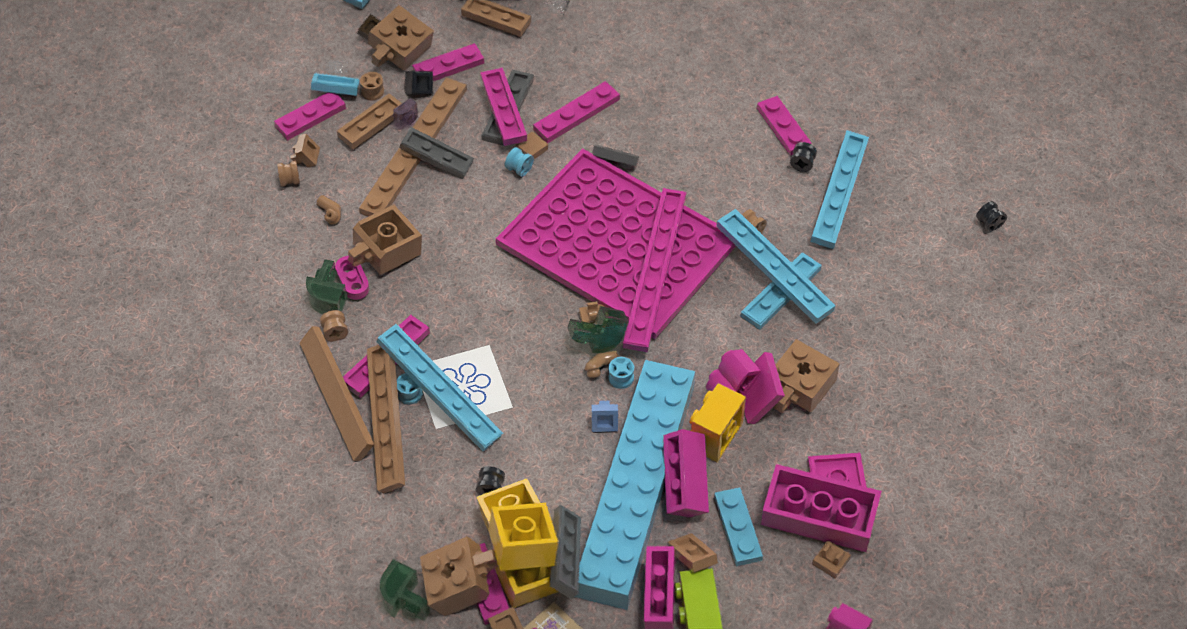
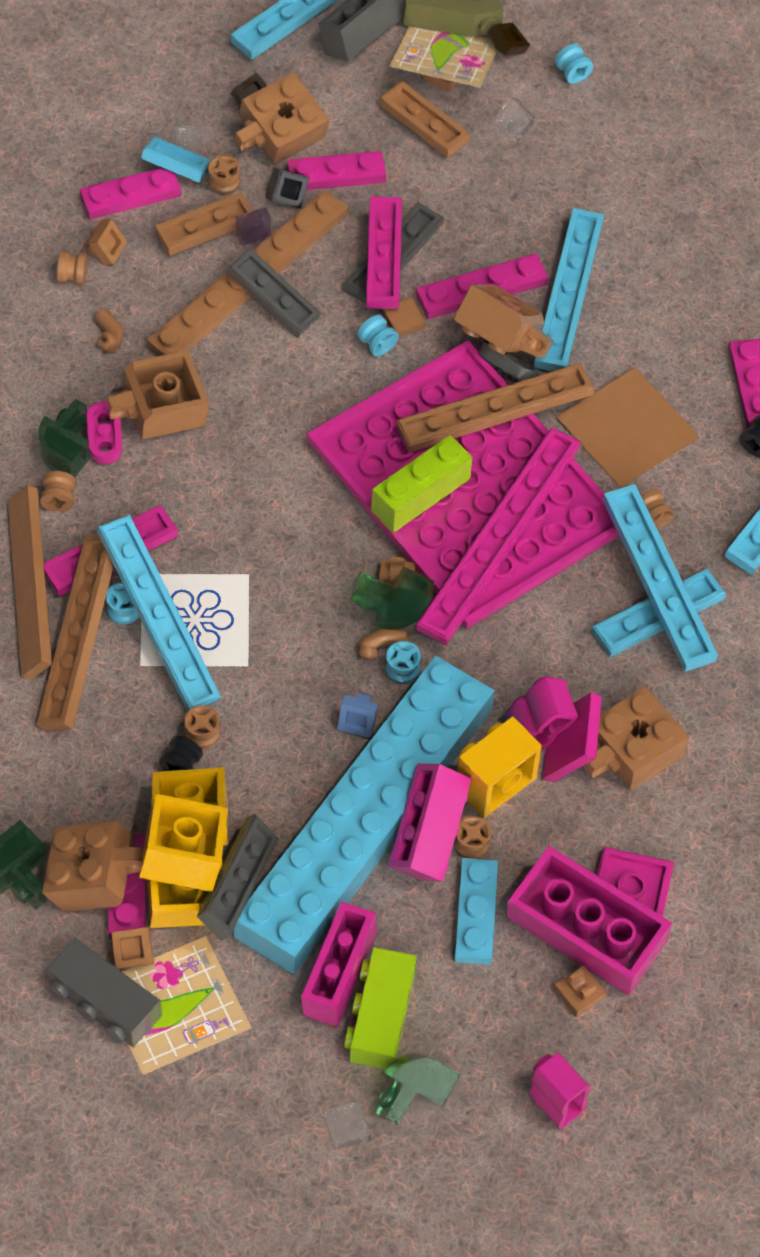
camera: 15 degrees right, 5 degrees up
(496, 450) = (202, 718): none -> medium nougat wheel
(590, 248) = (421, 484): none -> lime brick
(603, 127) = (503, 321): none -> medium nougat hinge
(618, 186) = (494, 407): none -> medium nougat tile
(637, 99) = (570, 287): none -> medium azure plate
(693, 552) = (401, 927): medium nougat plate -> none
(711, 176) = (628, 427): none -> medium nougat sticker
(717, 470) = (473, 829): none -> medium nougat wheel

